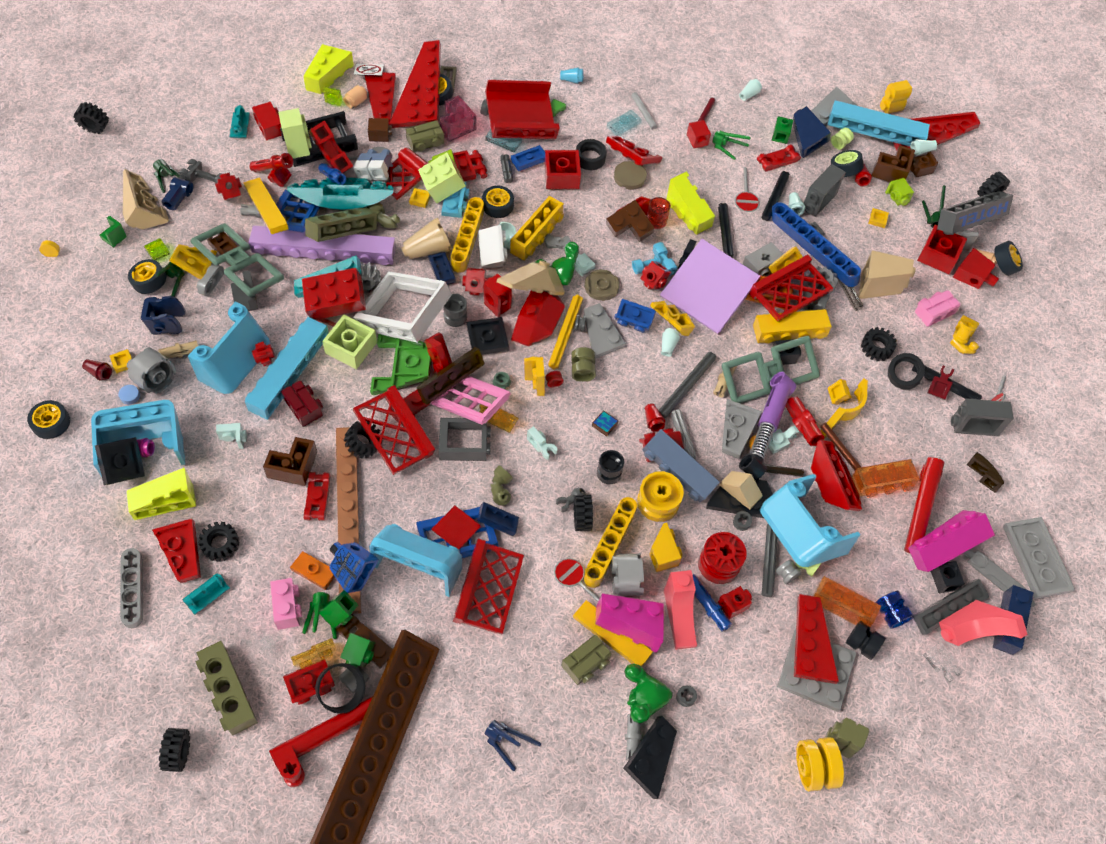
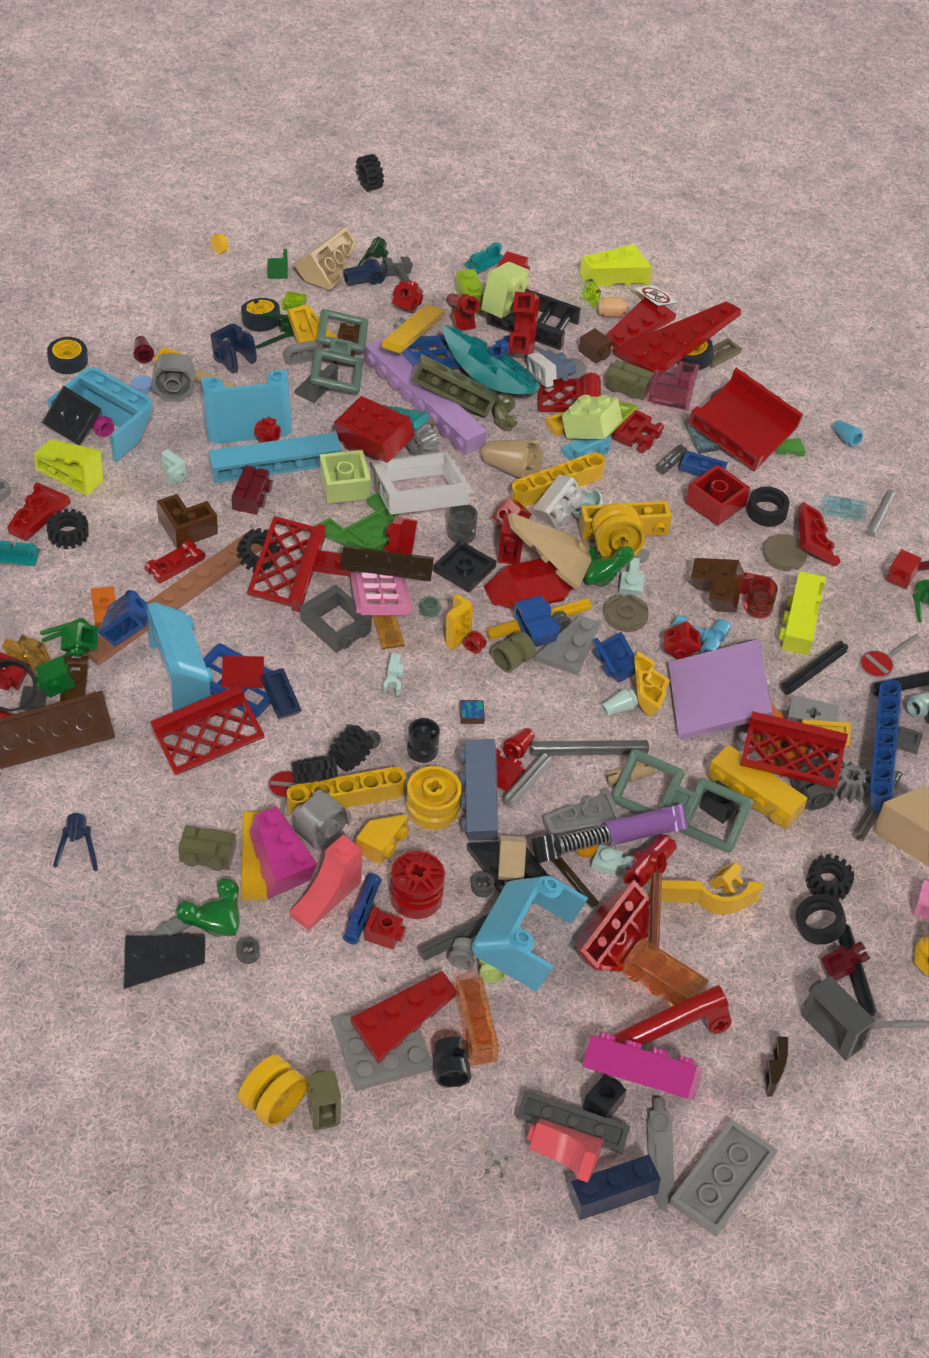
camera: 50 degrees right, 10 degrees down
(257, 149) = (468, 283): none -> lime brick
(284, 603) = (53, 605): bright pink brick -> none
(442, 268) = (498, 488): dark blue plate -> none
(498, 201) = (623, 477): black wheel -> none
(500, 495) = (309, 681): olive arm -> none
(549, 238) = (617, 527): none -> yellow wheel
(574, 334) = (535, 620): none -> blue brick
(583, 547) = (314, 769): none -> black tyre
(894, 610) = (513, 1069): clear blue wheel -> none

